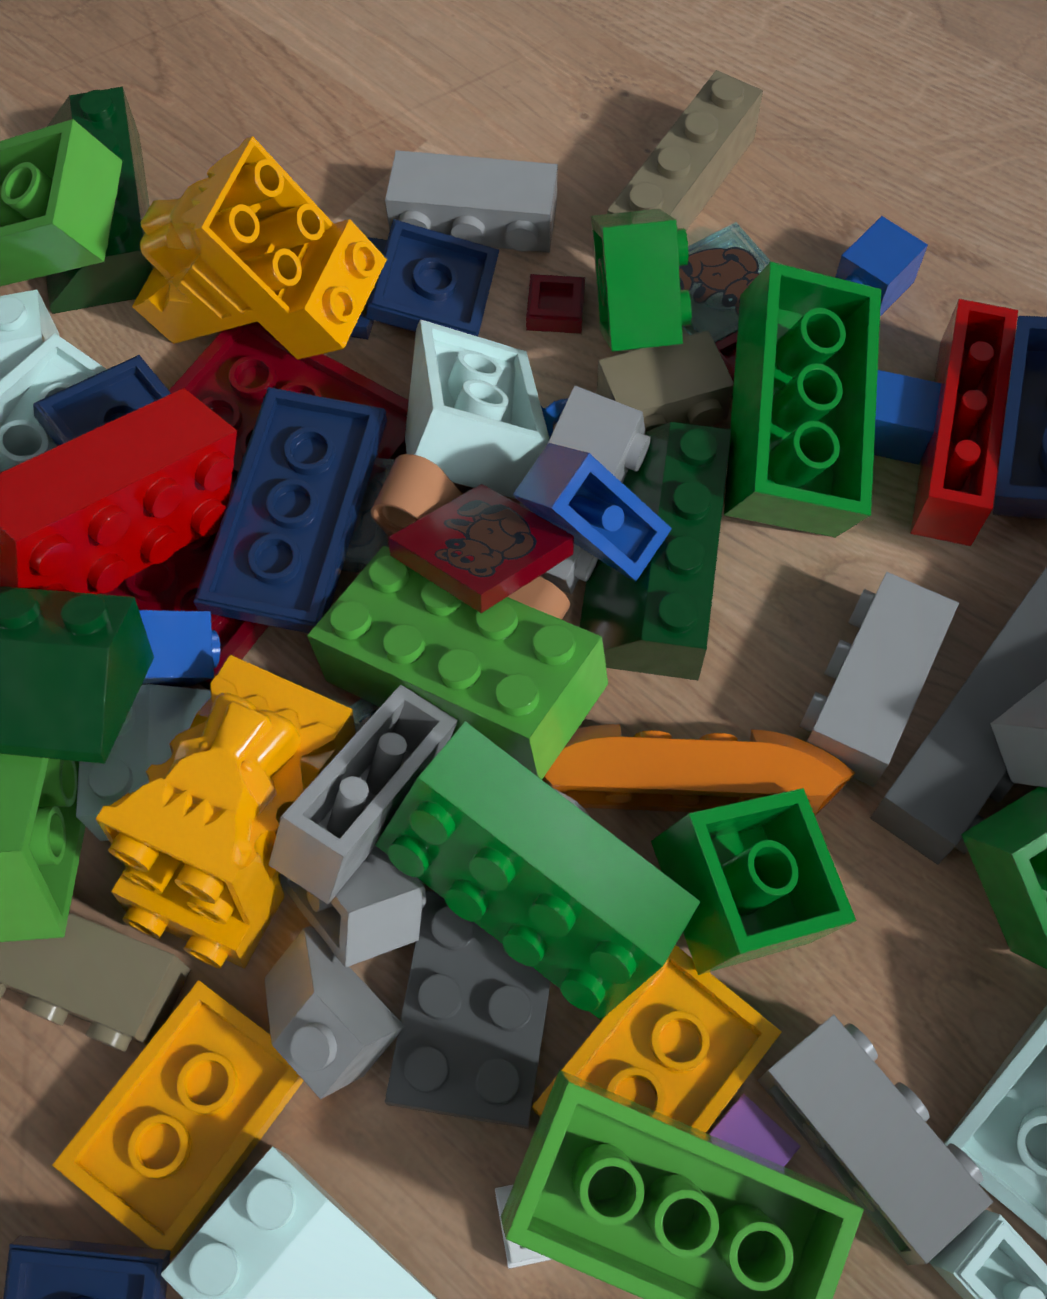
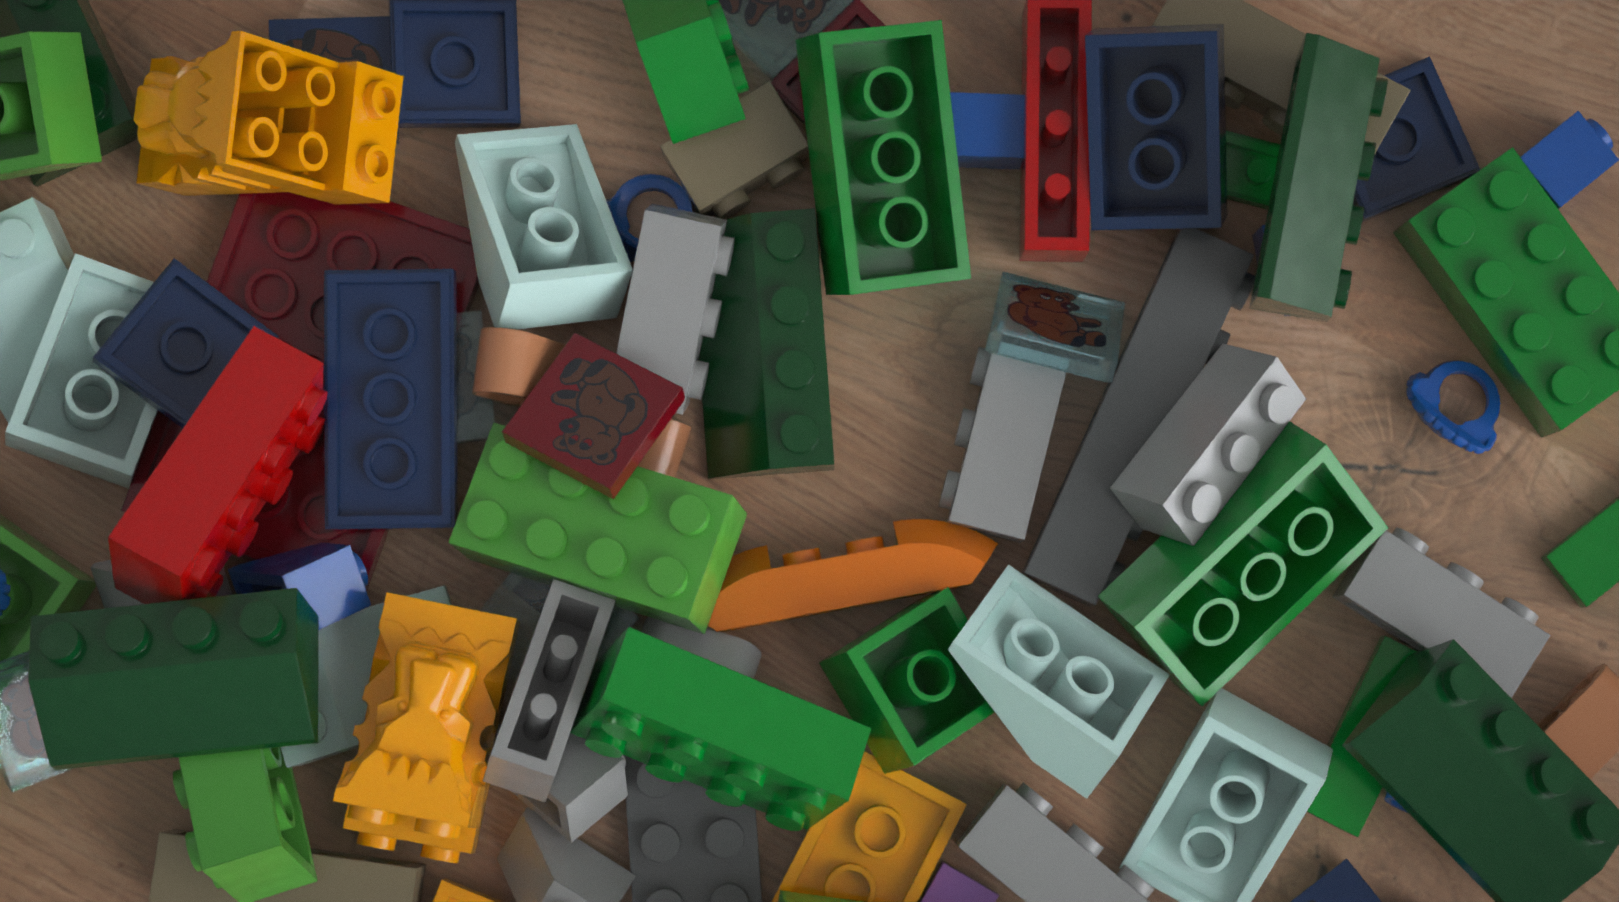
camera: 10 degrees left, 20 degrees up
(555, 303) = (594, 53): dark red tile -> none
(594, 507) = (692, 353): blue slope -> none
(907, 914) = (1056, 679): none -> light aqua slope
(947, 582) = (1056, 327): none -> clear light blue tile

